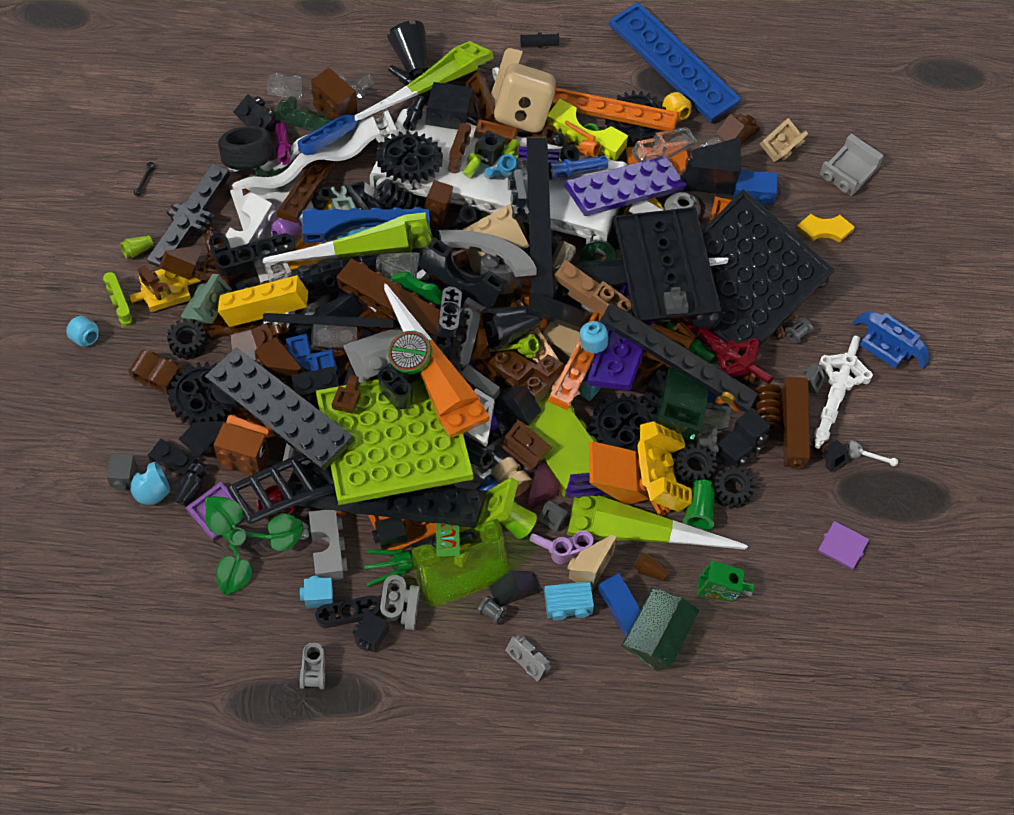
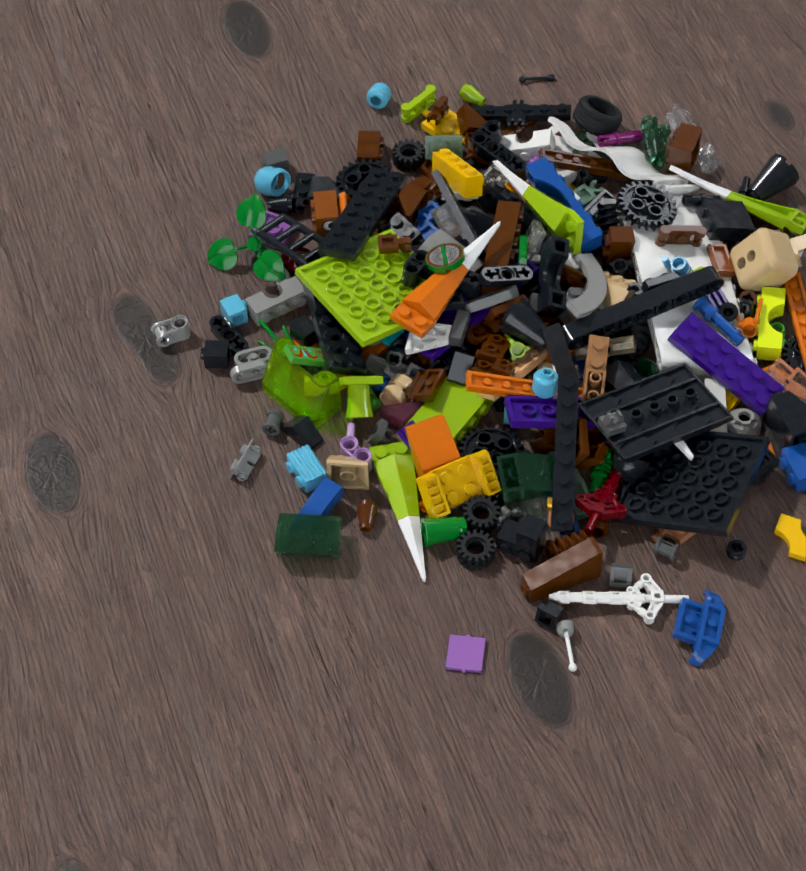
camera: 70 degrees right, 10 degrees down
(254, 113) = (637, 112): black bracket -> none
(326, 134) = (640, 154): blue plate -> none
(474, 162) = (670, 250): lime arm -> none
(490, 147) = (697, 254): black brick -> none
(723, 582) = (374, 566): green torso -> none

